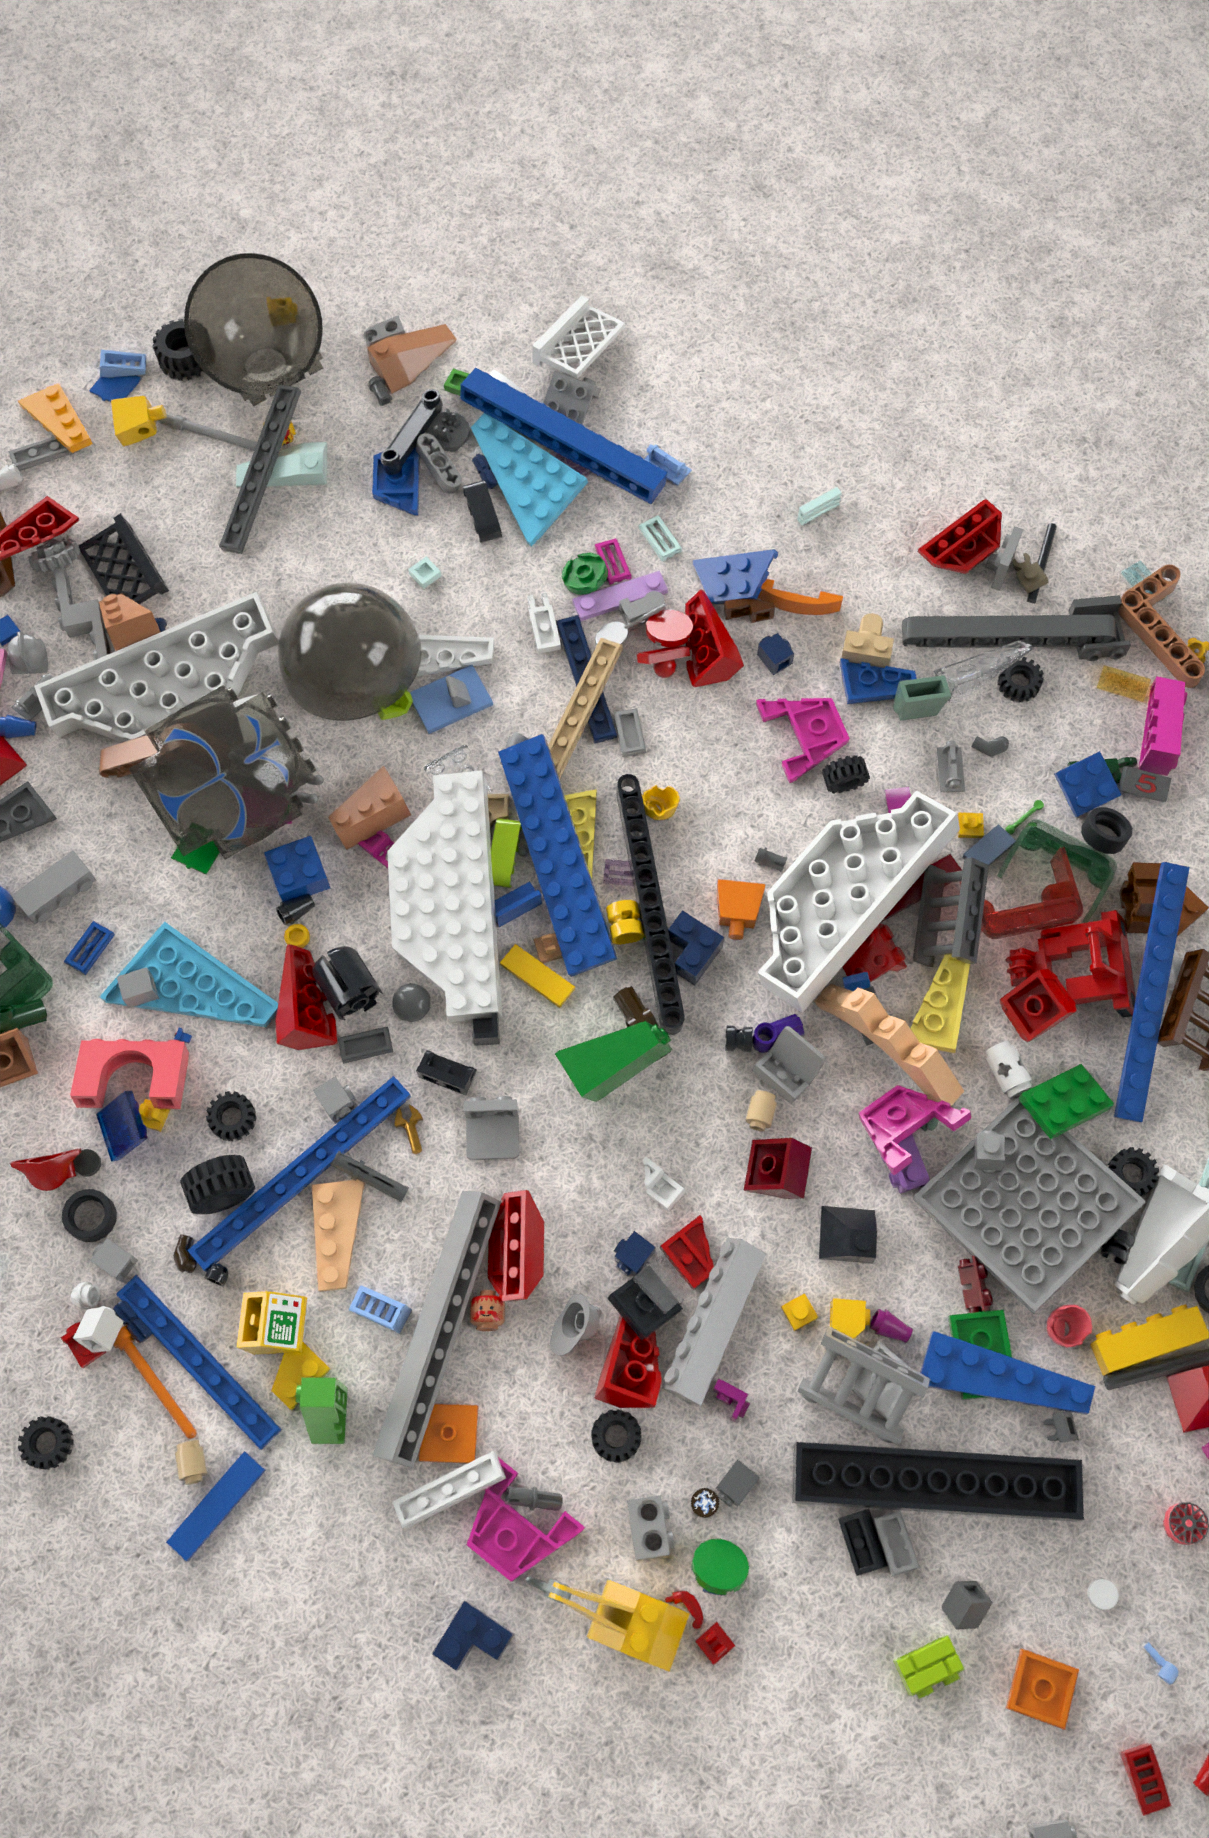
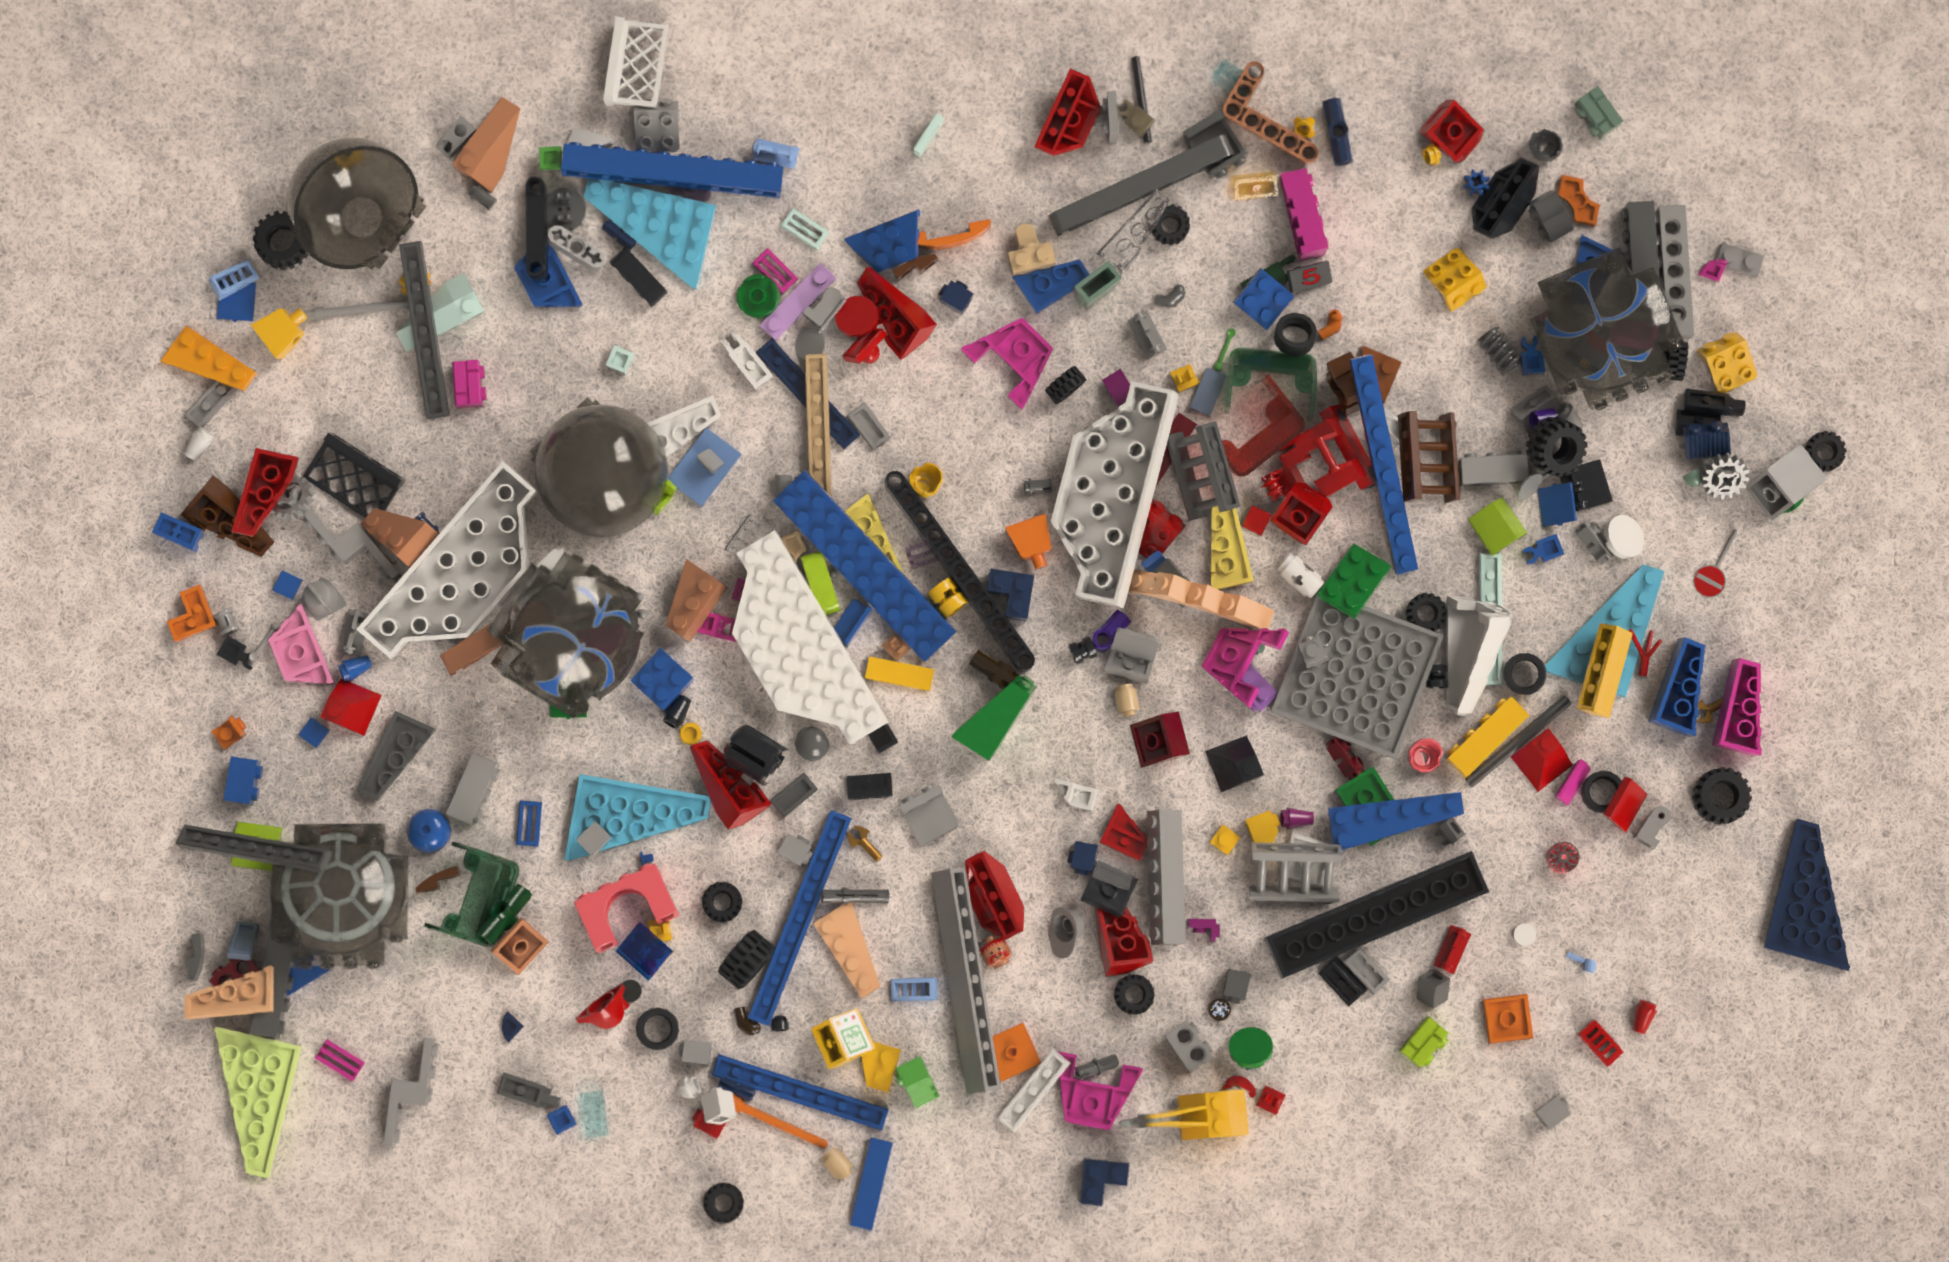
camera: 30 degrees left, 15 degrees up
(274, 532) = (468, 383): none -> dark pink brick
(985, 993) = (1256, 520): none -> red slope
(1009, 1568) = (1452, 949): none -> red hinge
(1150, 841) = (1333, 325): none -> orange arm

